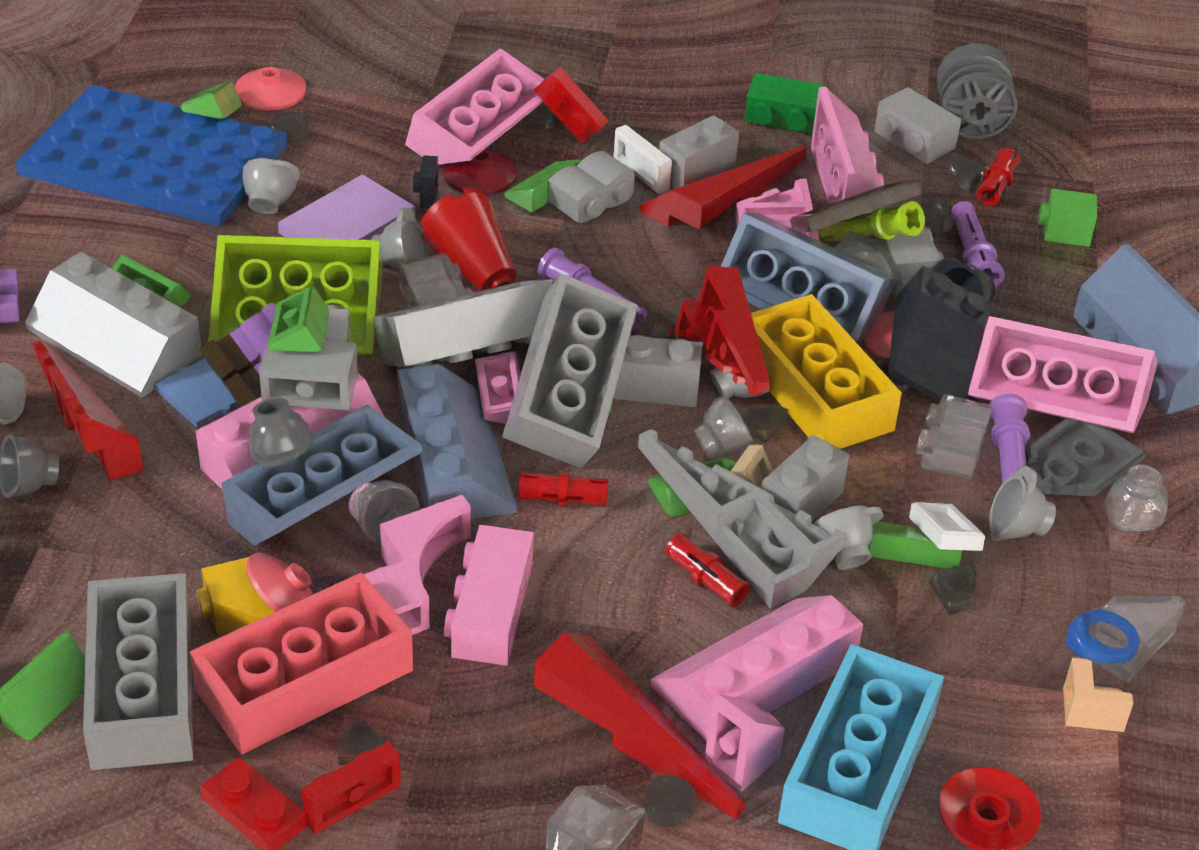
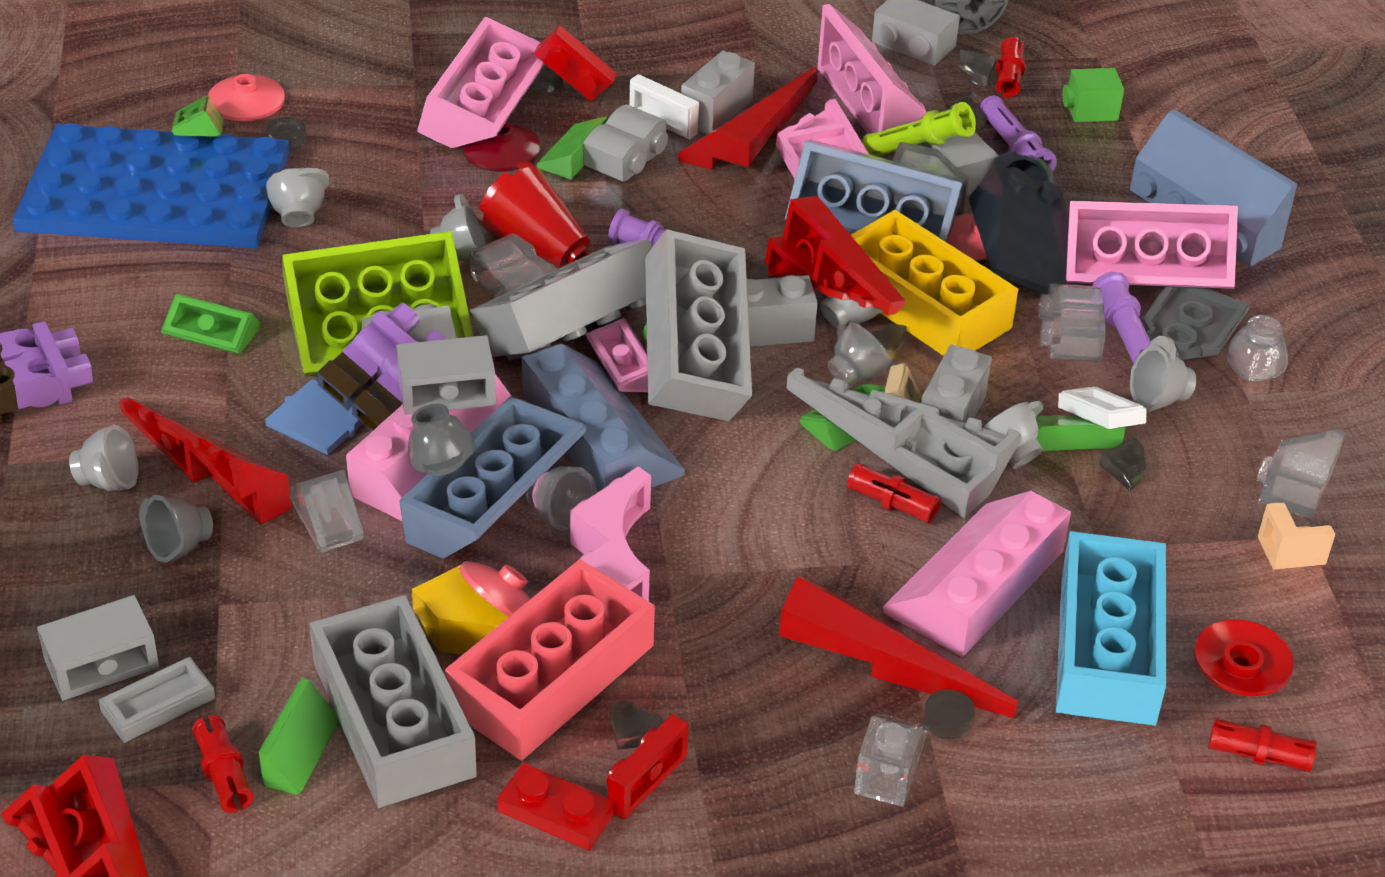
camera: 15 degrees left, 0 degrees up
(114, 324) = (199, 366): slope -> none
(169, 480) = (328, 510): none -> clear slope
(300, 323) = (421, 325): bright green slope -> none
(349, 212) = (389, 210): lavender tile -> none
(427, 181) = (457, 165): black plate -> none
(490, 595) = (701, 557): bright pink brick -> none
(563, 489) = (724, 443): red pin -> none
(742, 740) = (998, 644): bright pink slope -> none
(782, 103) = (779, 28): green brick -> none
(855, 205) = (904, 116): dark brown tile -> none
(1084, 645) = (1269, 487): blue piece -> none

